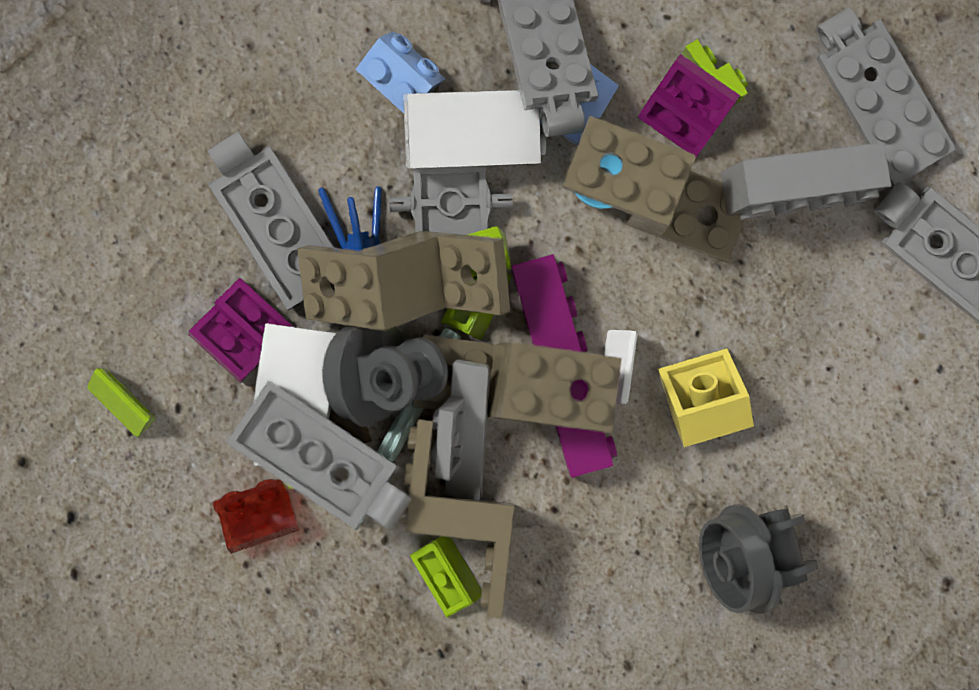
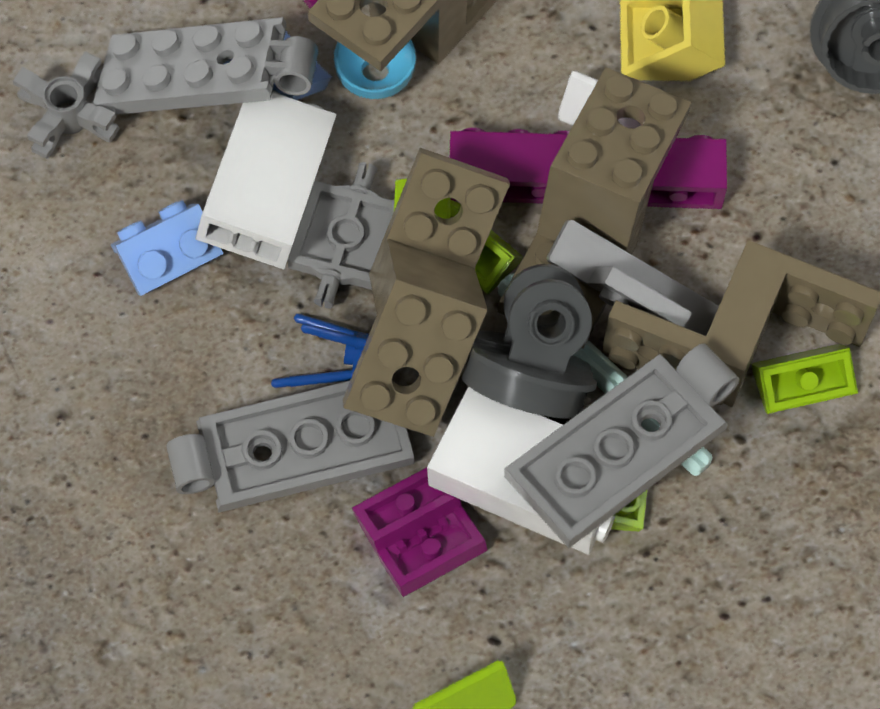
camera: 75 degrees left, 20 degrees down
(256, 515) = (666, 574): clear red bracket -> none

